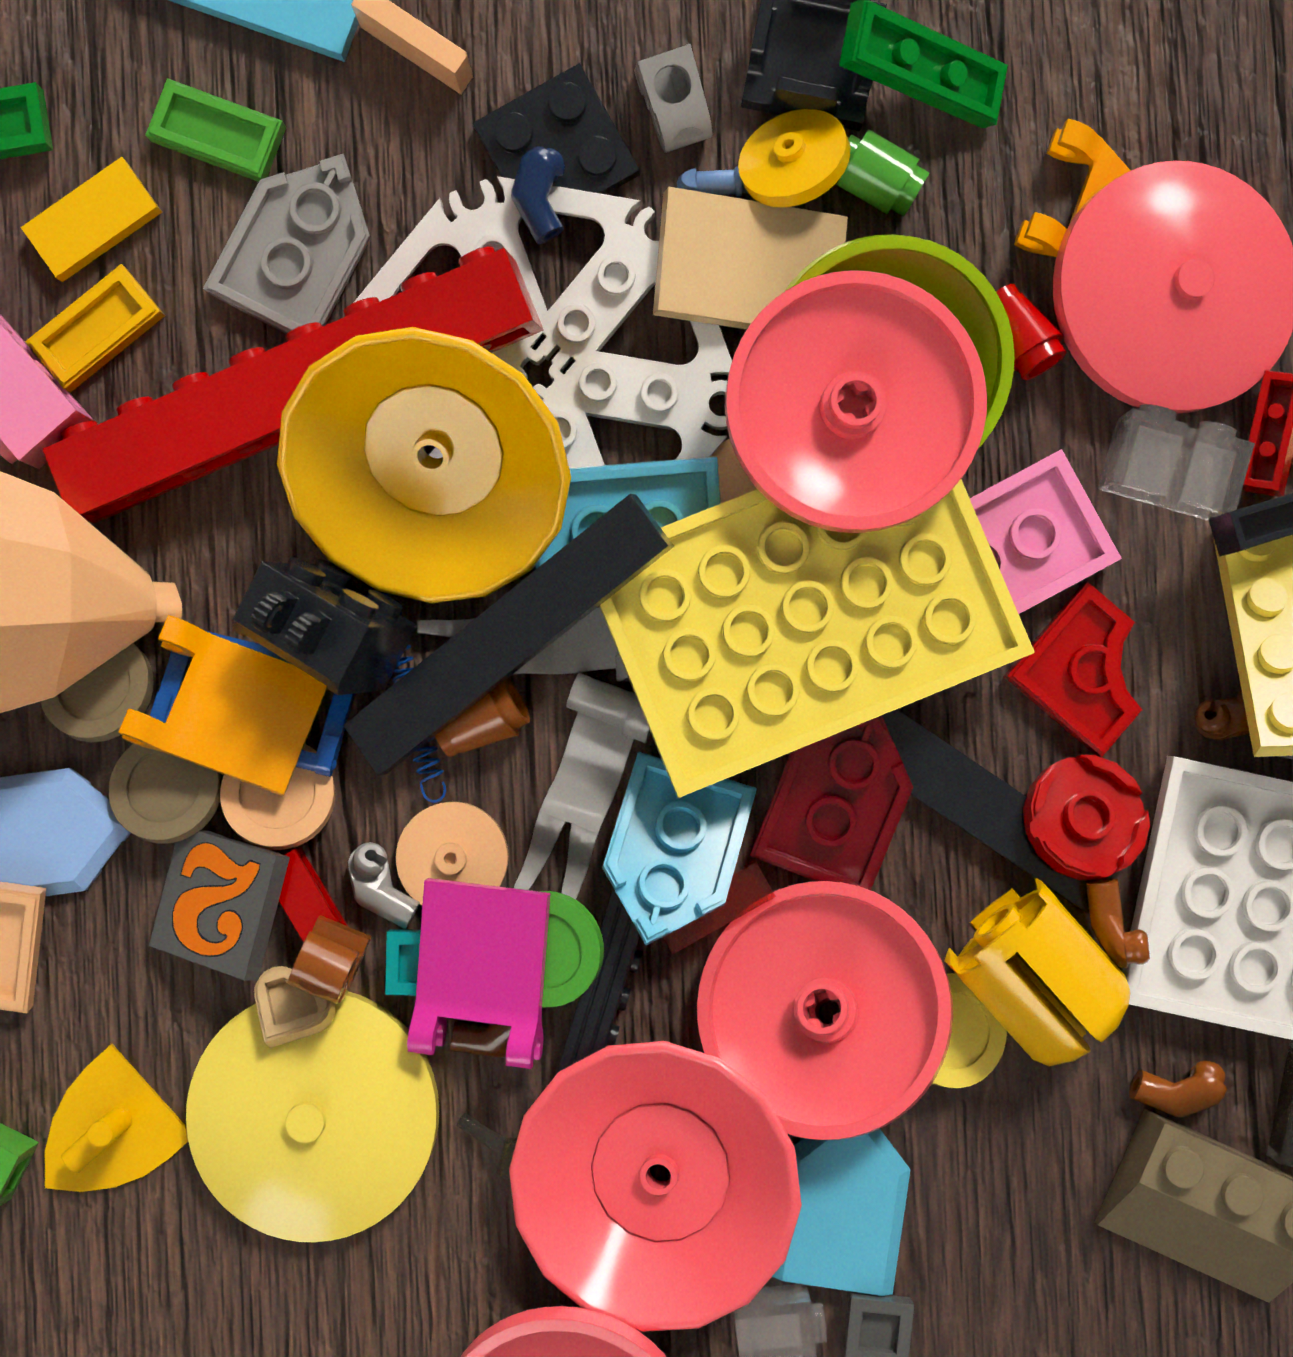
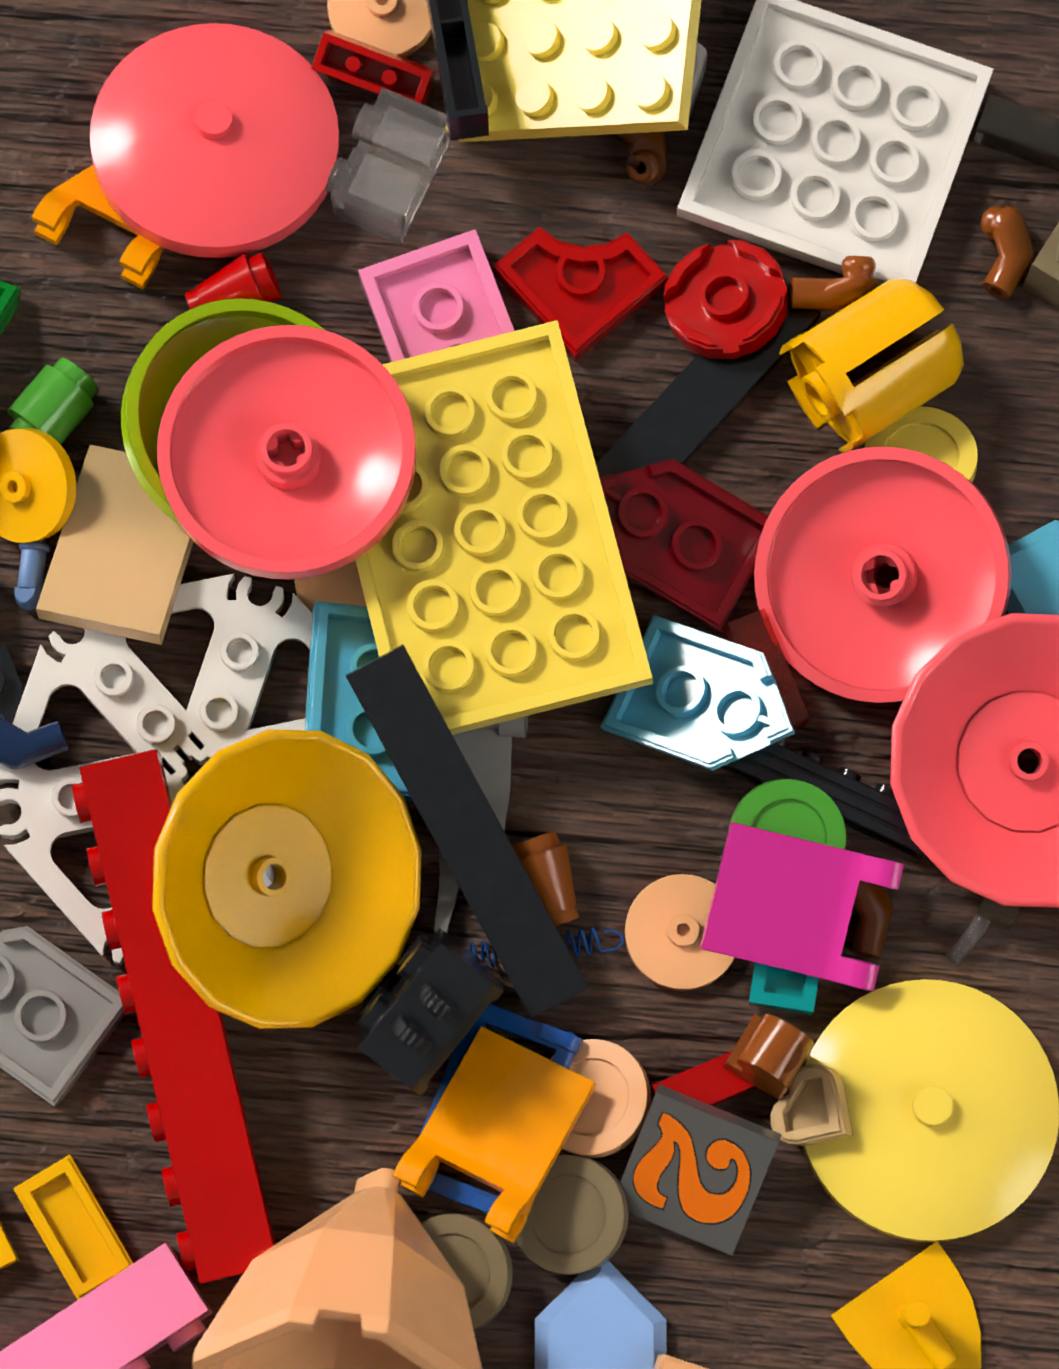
camera: 85 degrees left, 10 degrees down
(374, 888) = (701, 1015): light grey arm -> none
(586, 778) = (616, 781): light grey flag -> none

